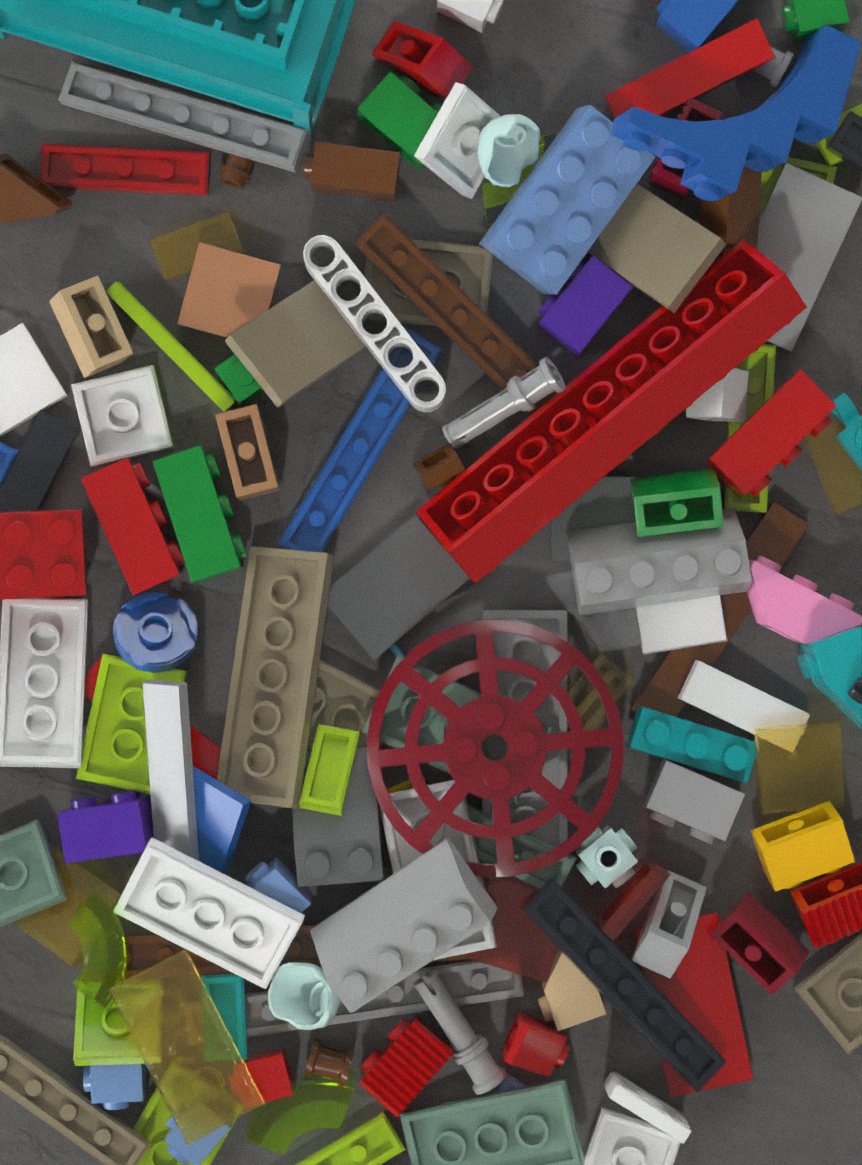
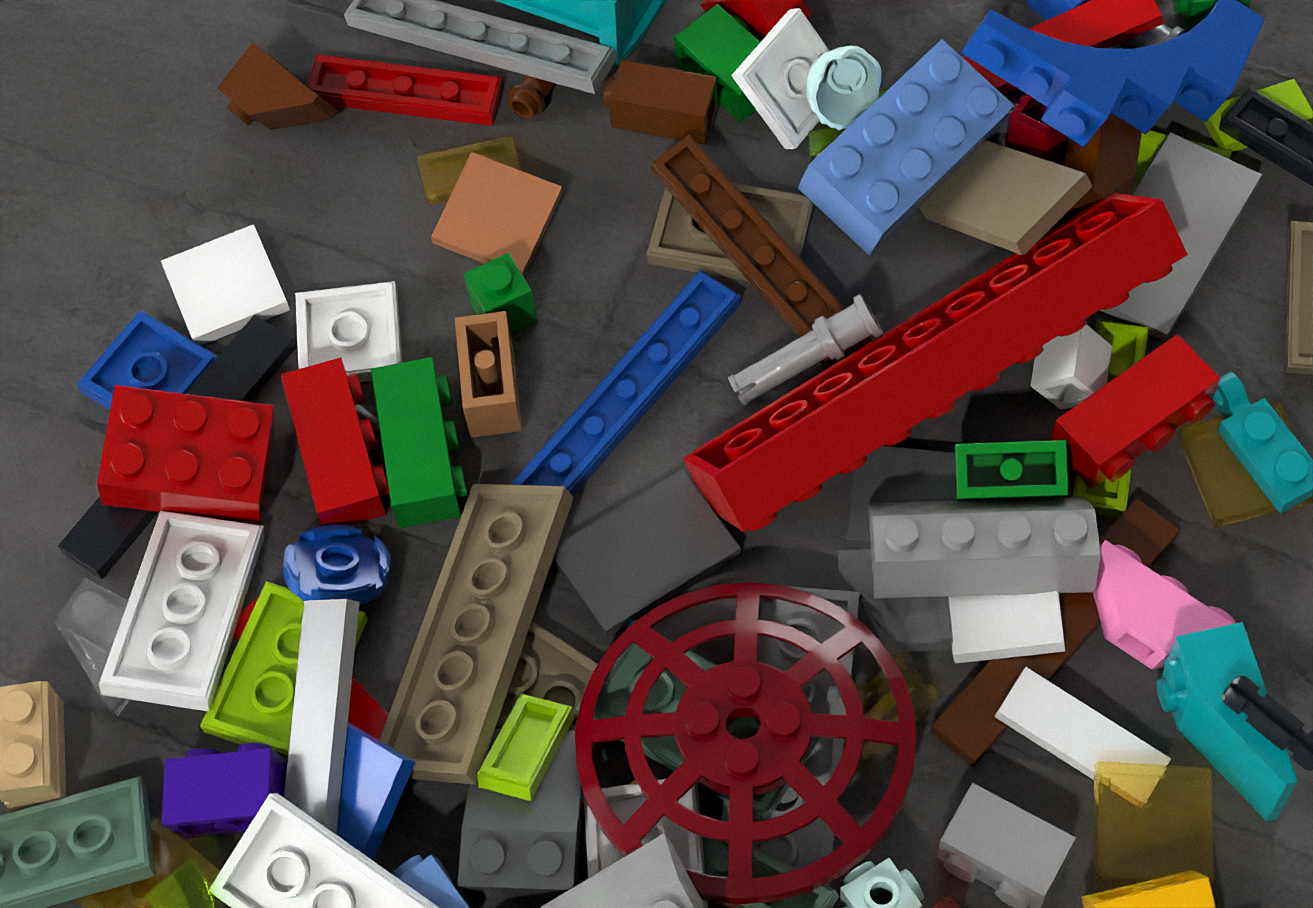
camera: 15 degrees right, 25 degrees down
(91, 326) = (330, 227): tan brick -> none
(172, 347) = (413, 254): lime tile -> none
(295, 343) = (567, 260): dark tan tile -> none
(370, 303) = (666, 270): white beam -> none
(439, 467) = (718, 418): reddish brown plate -> none
(583, 306) = (916, 262): dark purple brick -> none
(692, 744) = (1039, 787): teal plate -> none

